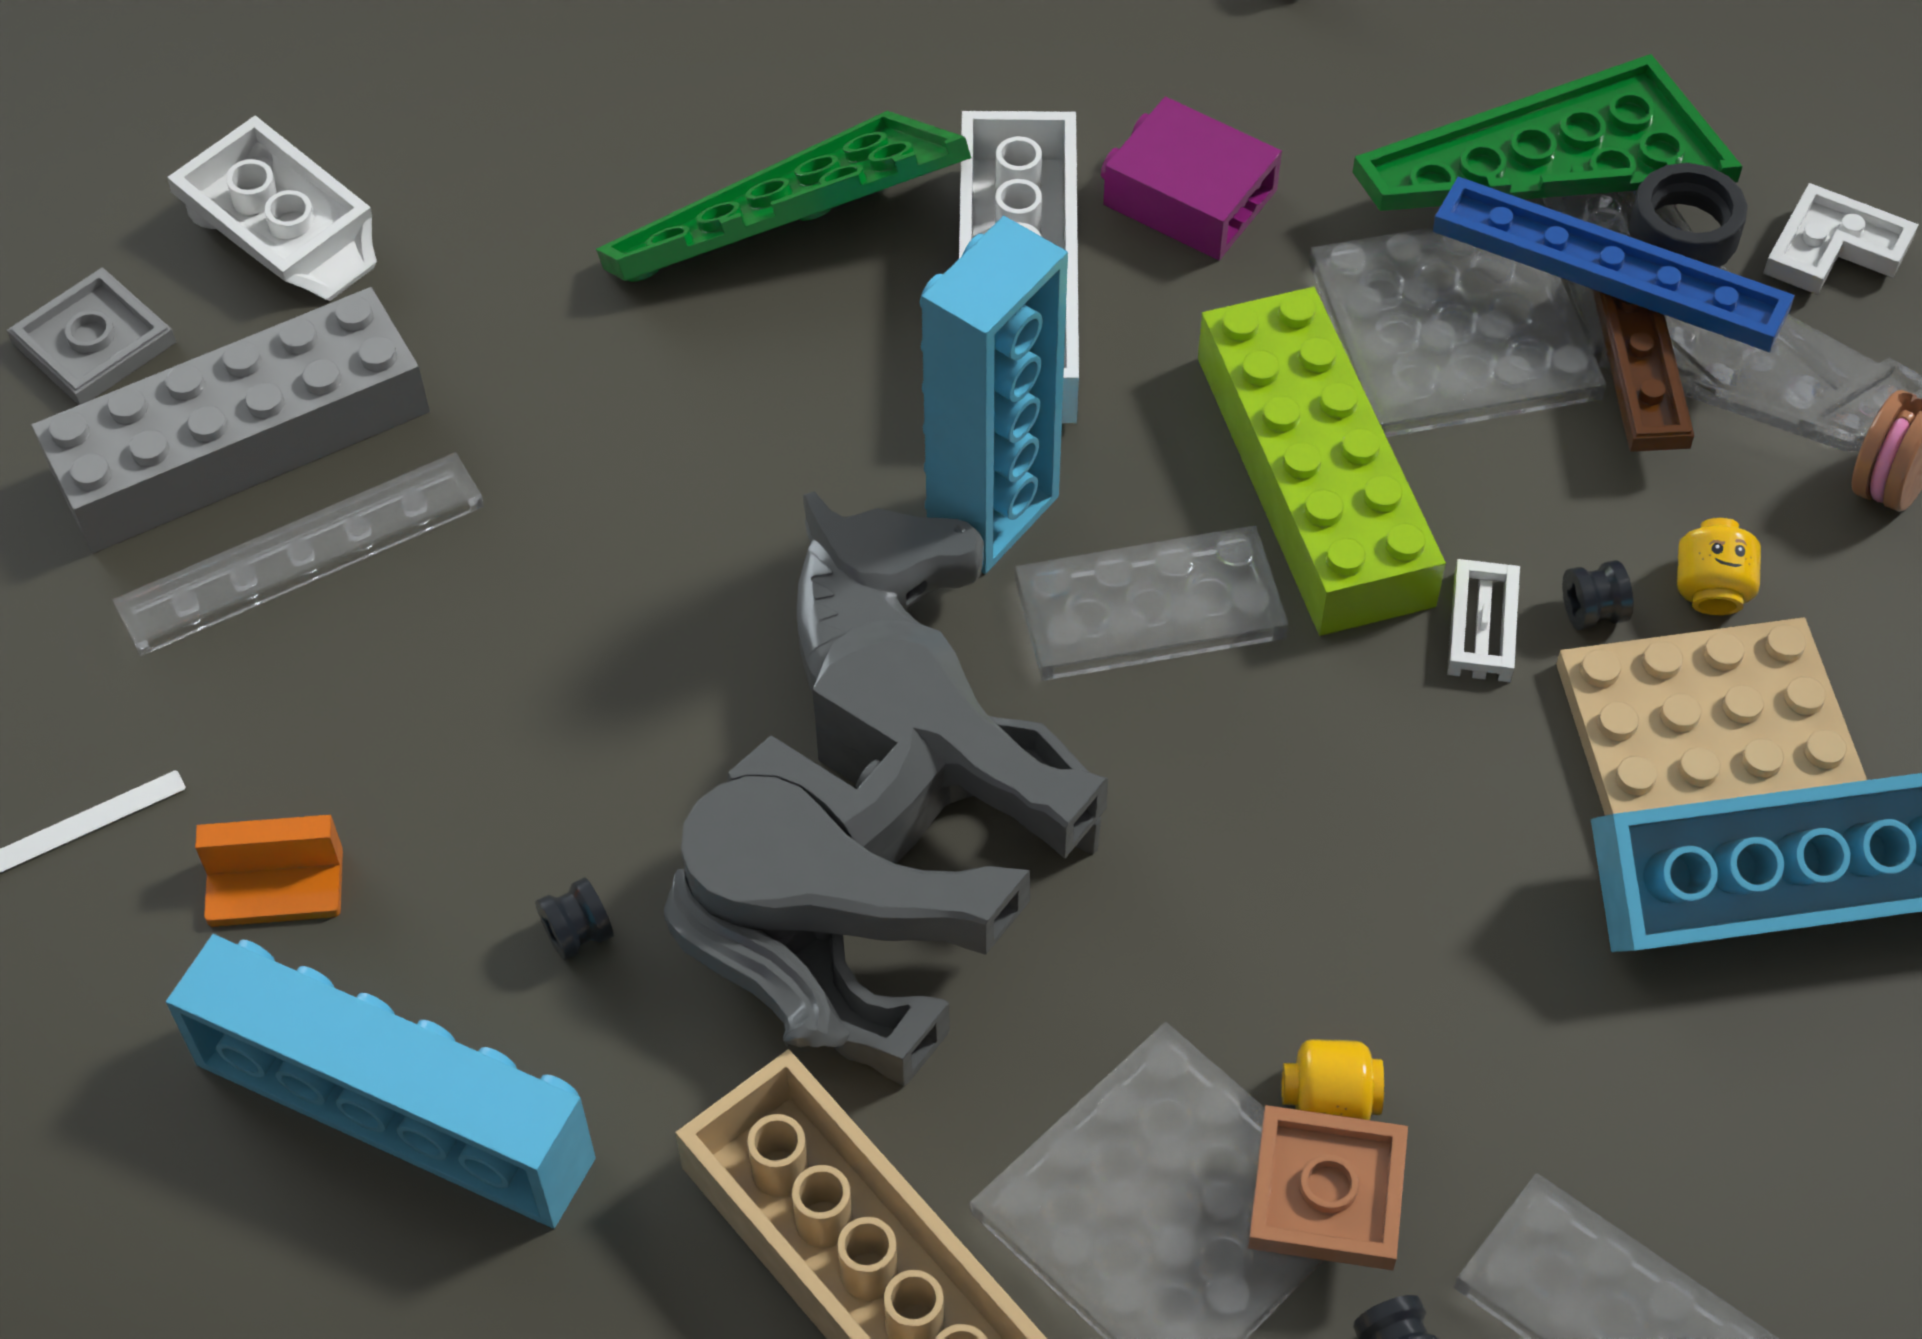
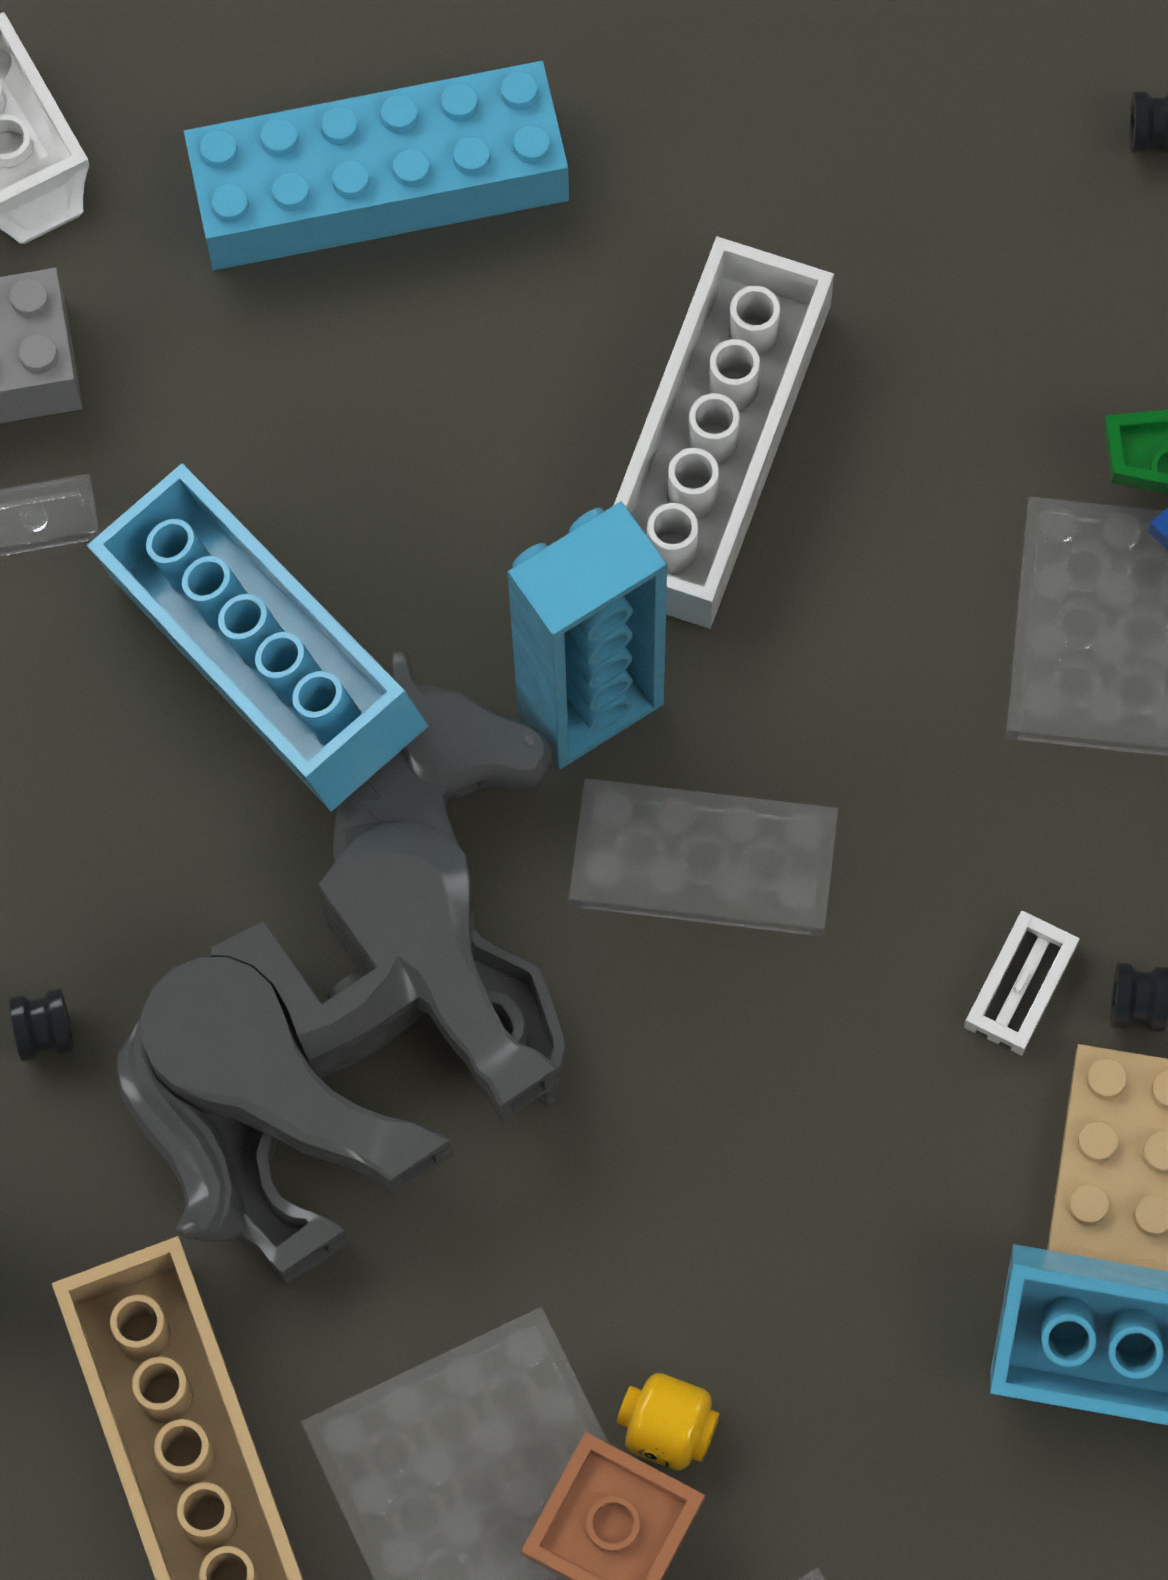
camera: 20 degrees right, 15 degrees up
(633, 152) = (378, 165): none -> medium azure brick
(674, 513) = (258, 637): none -> medium azure brick
(801, 187) = (560, 261): green wing -> none
(1191, 177) = (937, 371): magenta brick -> none
(1319, 461) = (927, 754): lime brick -> none

